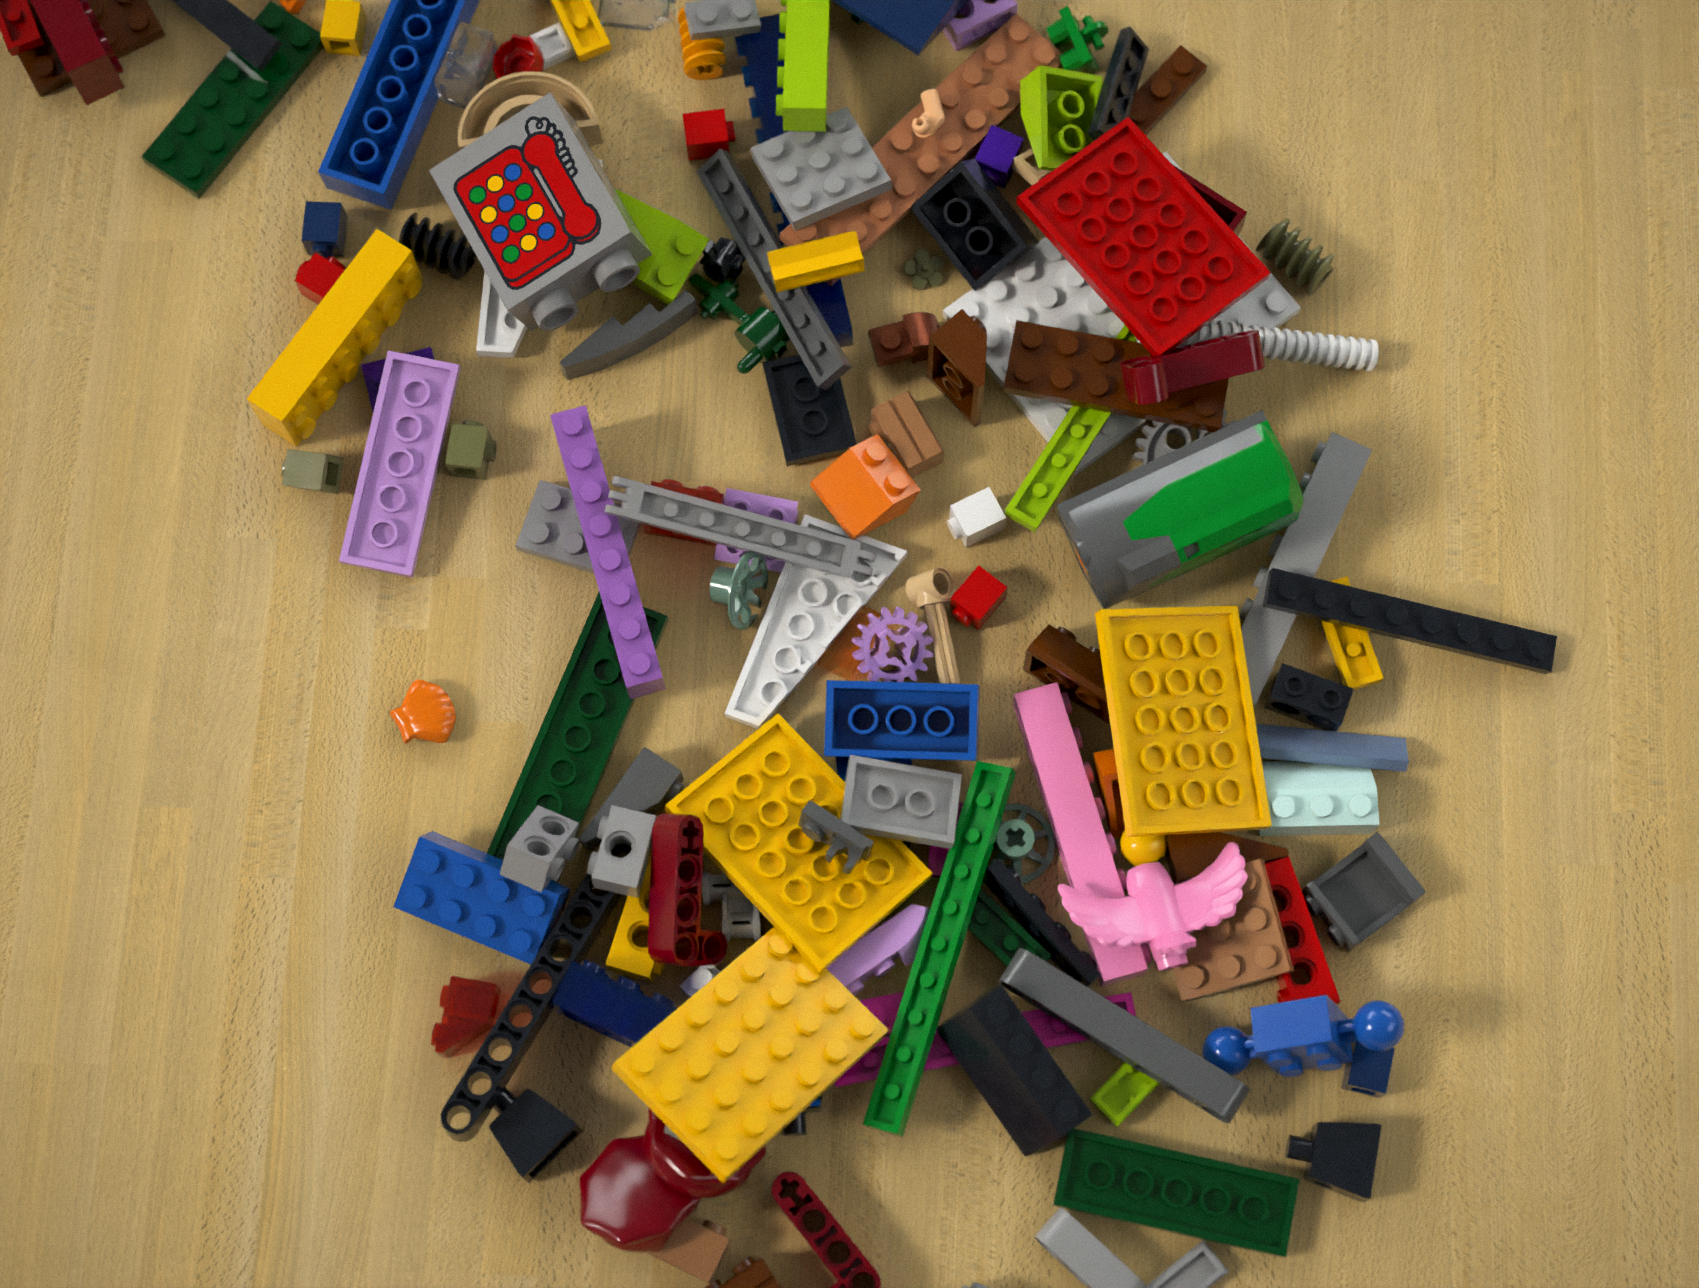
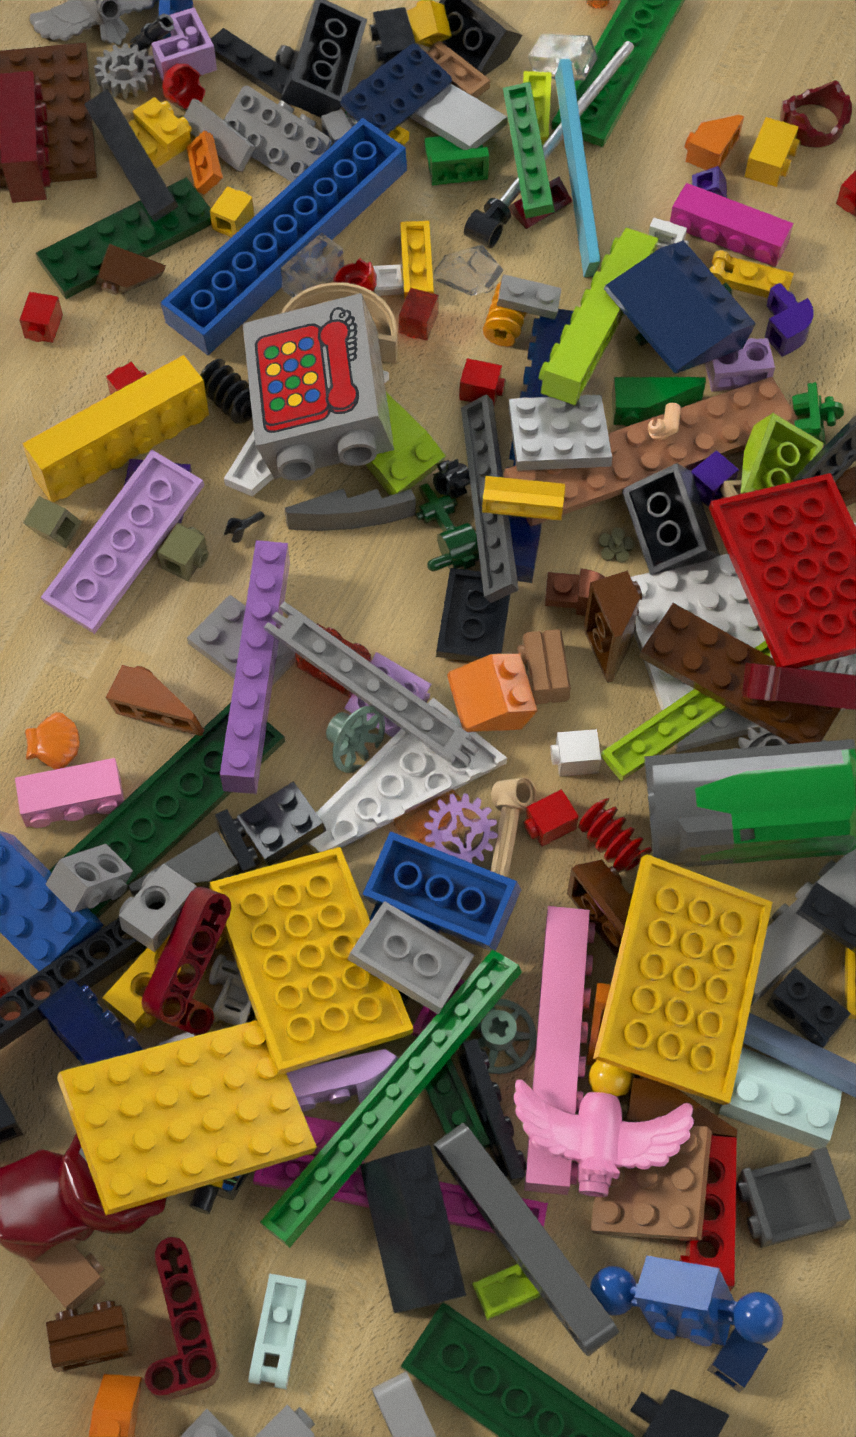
camera: 20 degrees right, 10 degrees down
(185, 234) = (41, 317): none -> red brick
(255, 144) = (125, 270): none -> reddish brown slope
(324, 228) = (149, 348): dark blue brick -> none
(470, 763) = (69, 793): none -> bright pink brick
(502, 630) = (144, 697): none -> dark orange slope
(515, 398) = (237, 526): none -> black hand
(605, 77) = (418, 314): none -> clear red brick
(658, 740) = (232, 832): none -> black plate
(705, 710) = (281, 823): none -> black plate
(825, 827) = (344, 964): dark grey plate -> none
(891, 89) = (646, 397): none -> green slope
(920, 1217) = (277, 1329): none -> light aqua plate
(1049, 595) = (611, 837): none -> red piece

